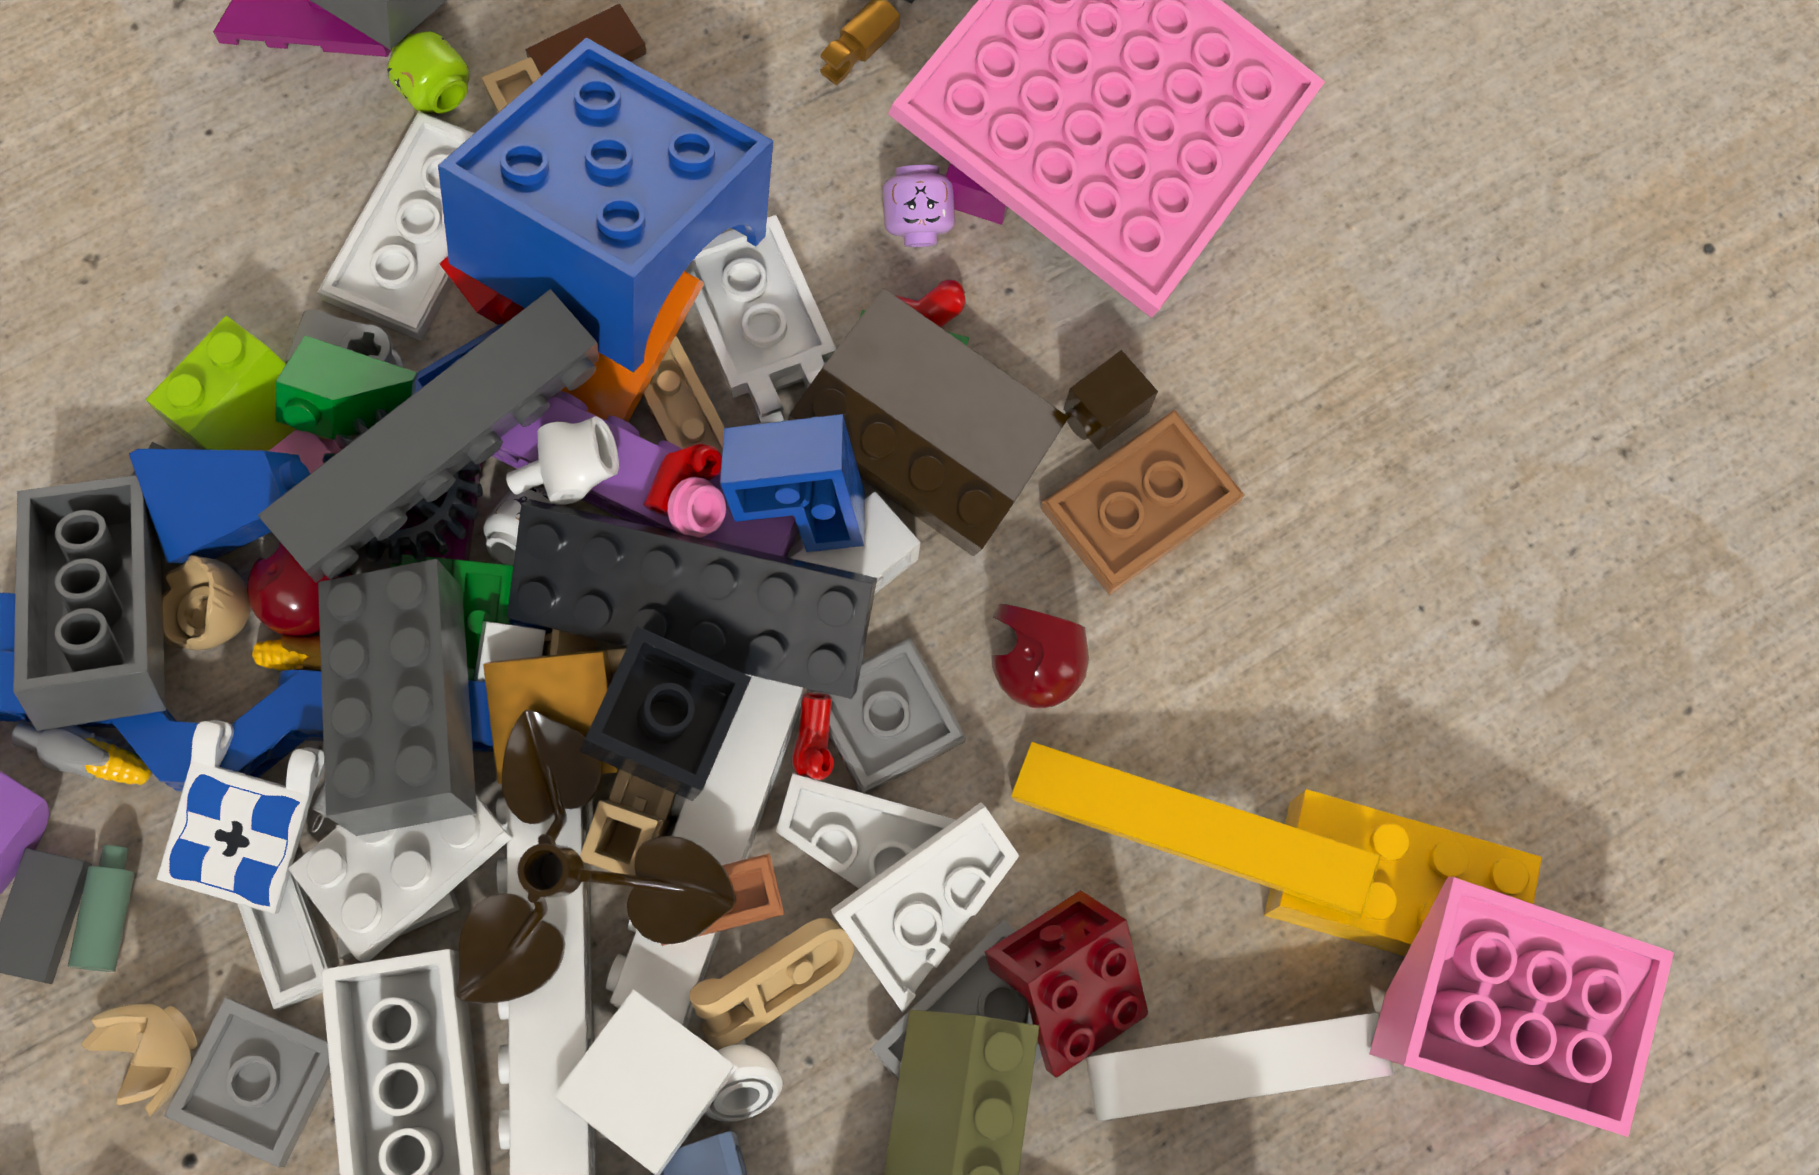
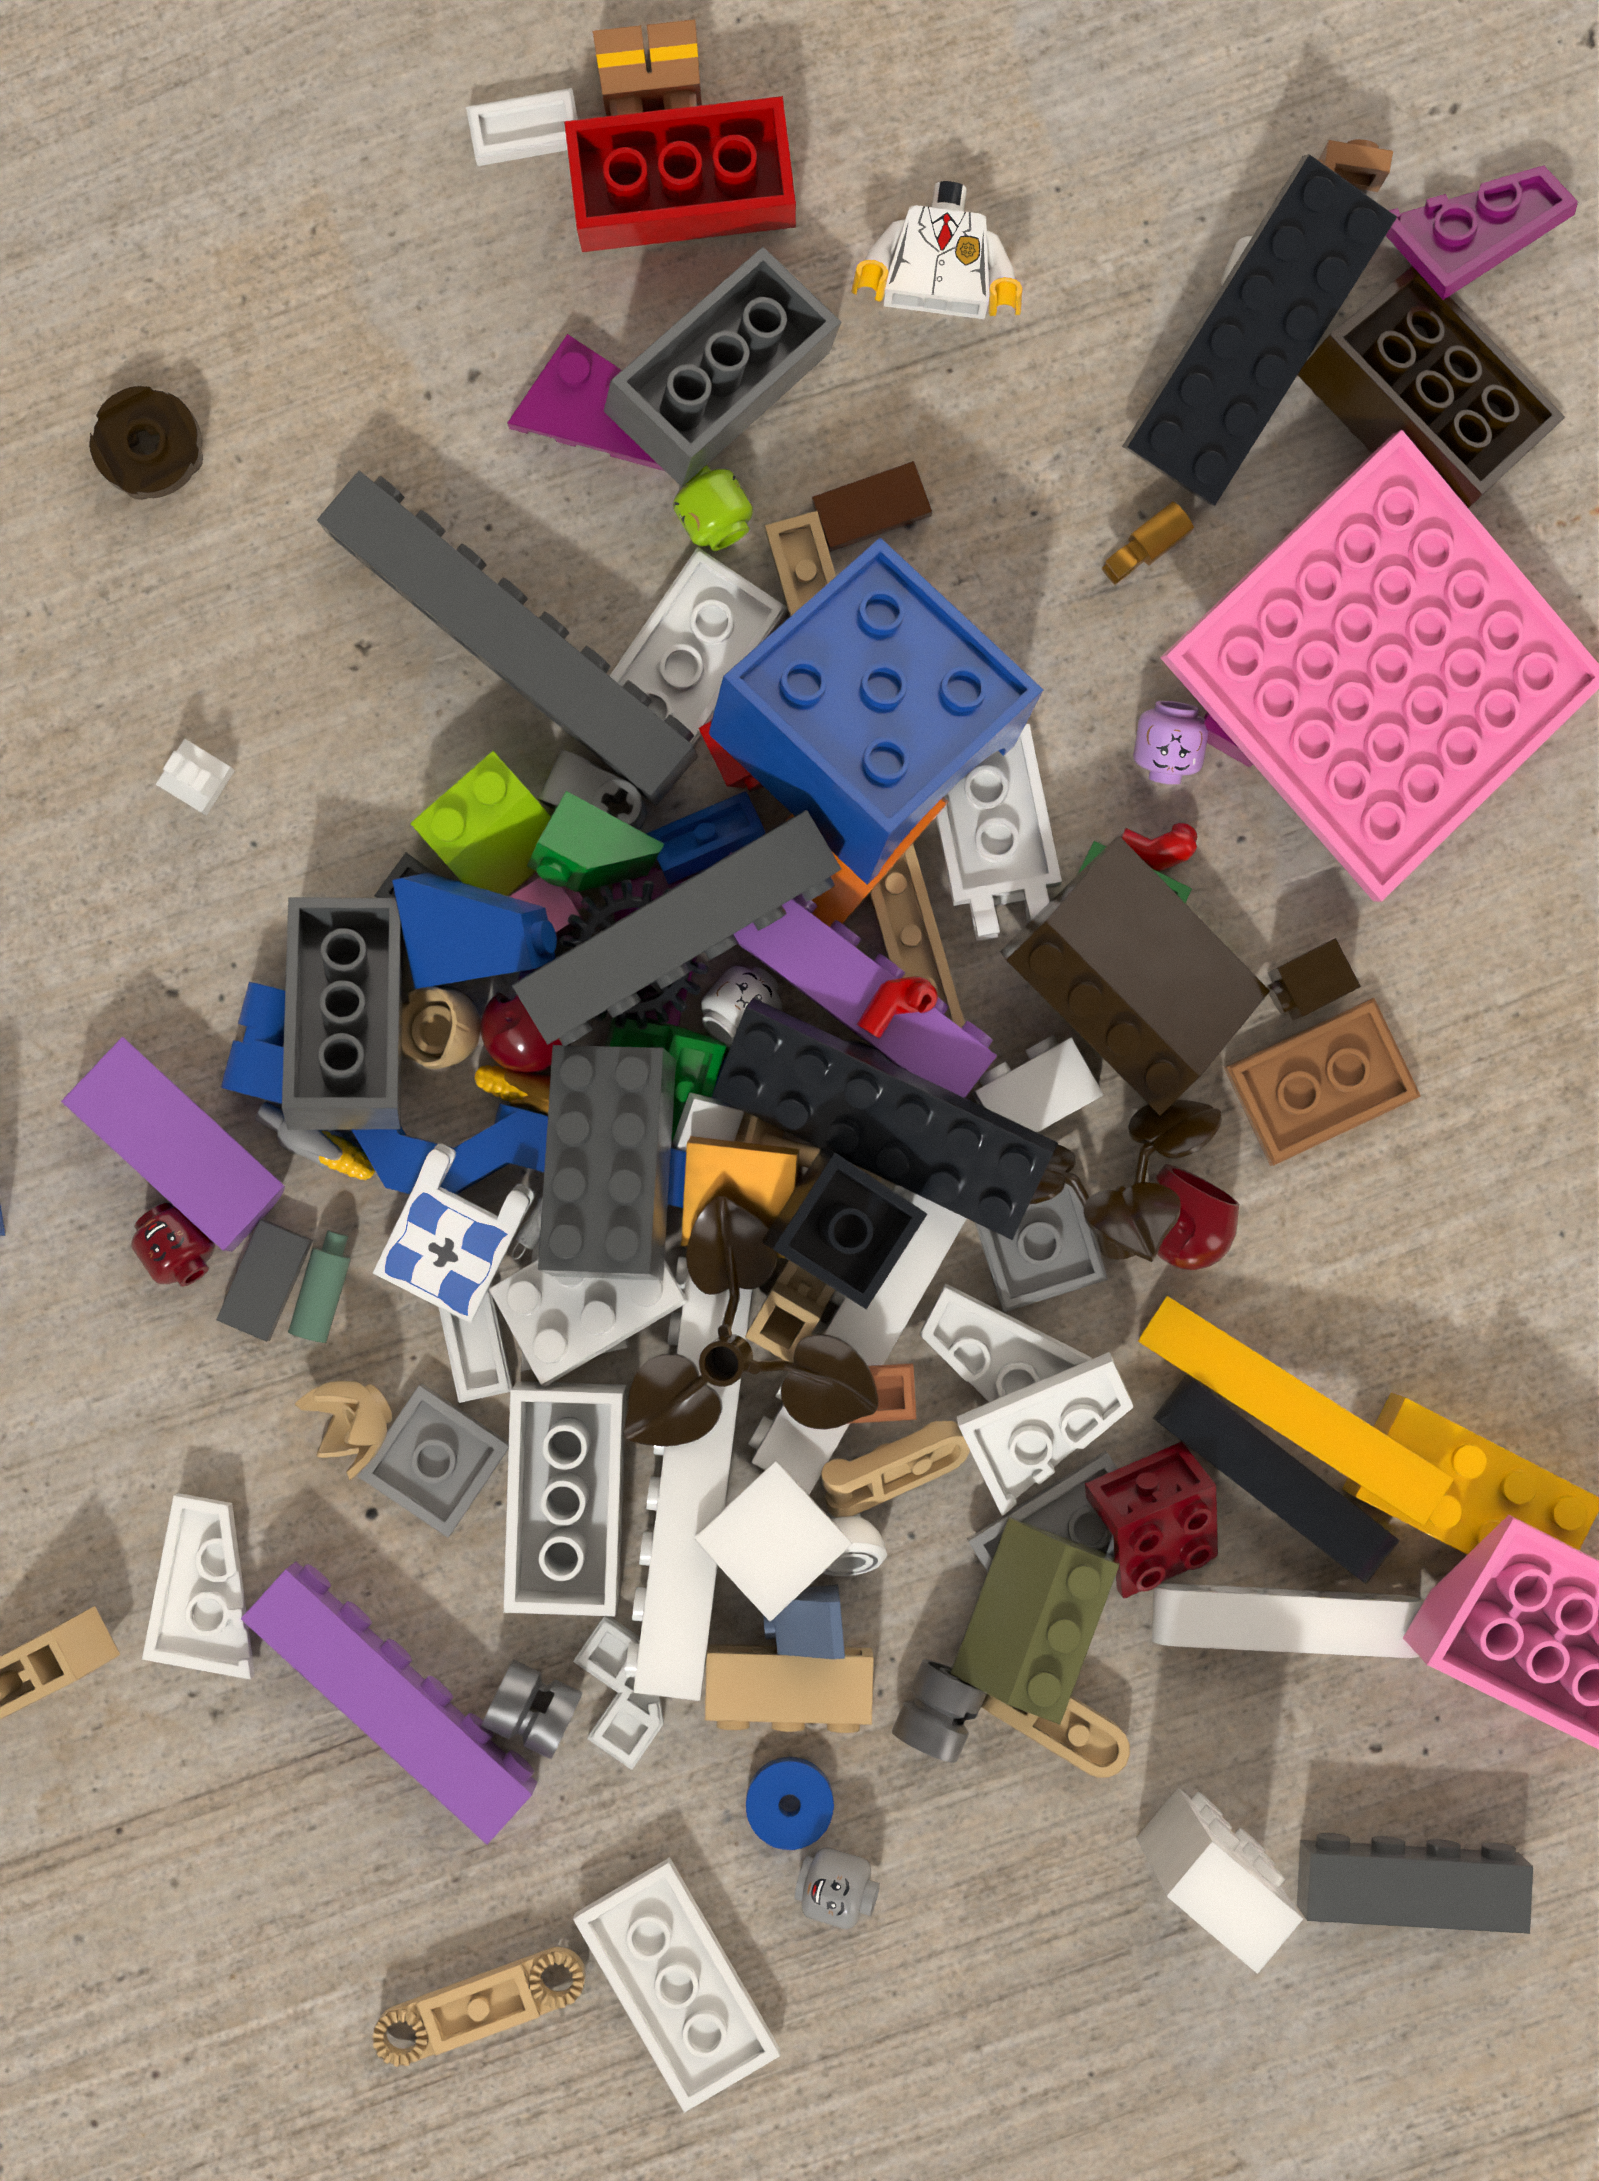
camera: 15 degrees right, 15 degrees up
(236, 215) = (508, 637): none -> dark grey brick
(570, 461) = (796, 970): white piece -> none
(696, 507) = (905, 1040): bright pink plate -> none
(797, 471) = (1001, 1025): blue brick -> none
(811, 752) = (963, 1271): red arm -> none
(964, 635) = (1142, 1215): none -> dark brown plant
(1193, 913) = (1276, 1479): none -> black beam

